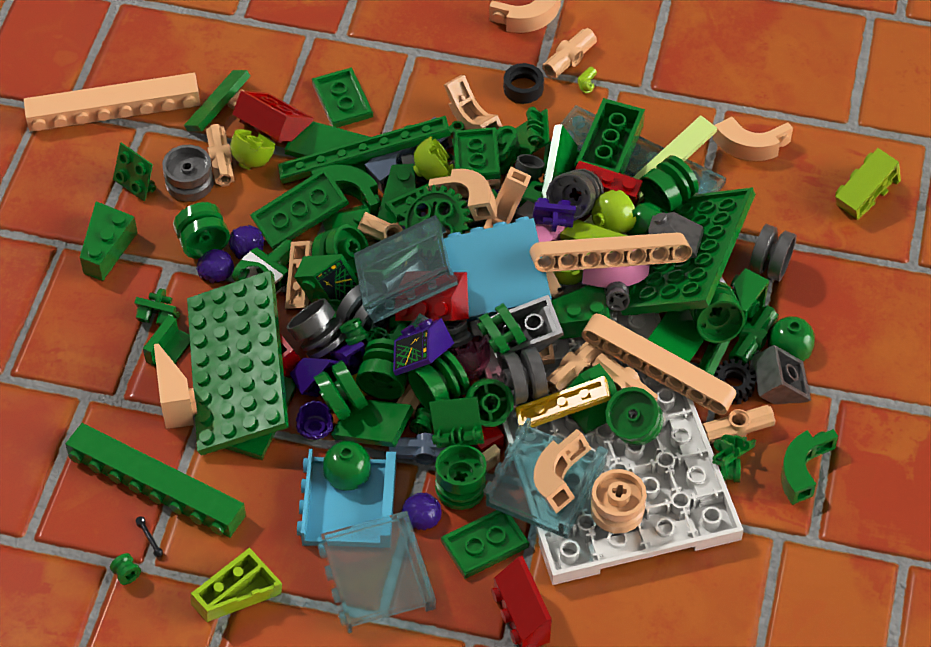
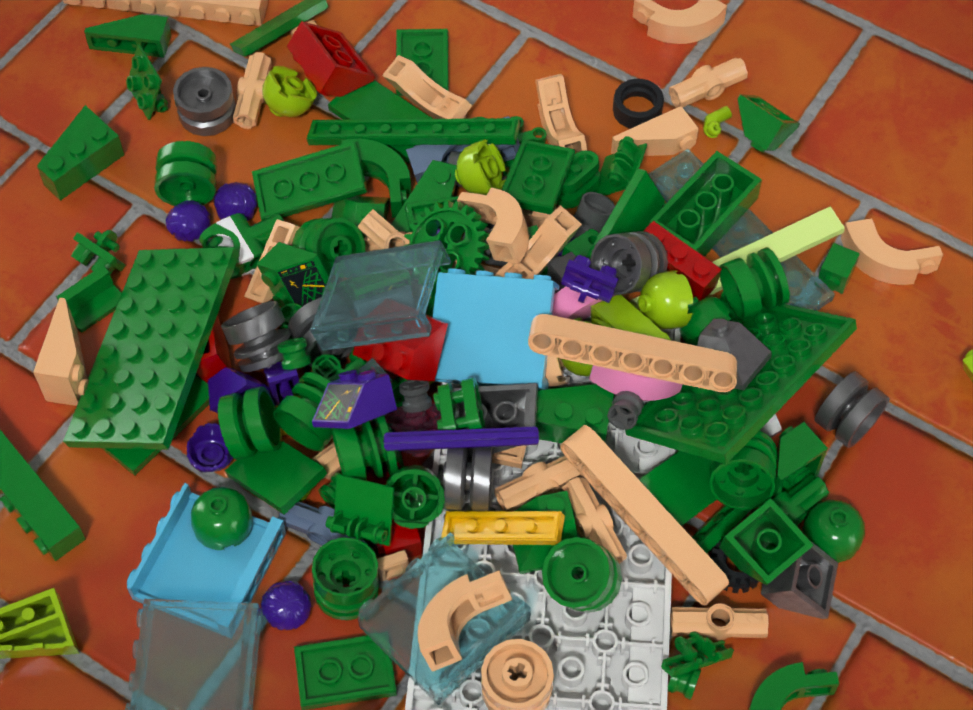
camera: 20 degrees right, 5 degrees up
(100, 140) = (125, 34): none -> green slope
(358, 119) = (424, 92): none -> light nougat arch
(512, 347) = (461, 438): none -> dark purple axle
(556, 97) = (663, 134): none -> light nougat slope
(624, 71) = (764, 123): none -> green slope
(721, 158) = (838, 267): none -> green brick
(751, 357) = (765, 543): none -> green slope

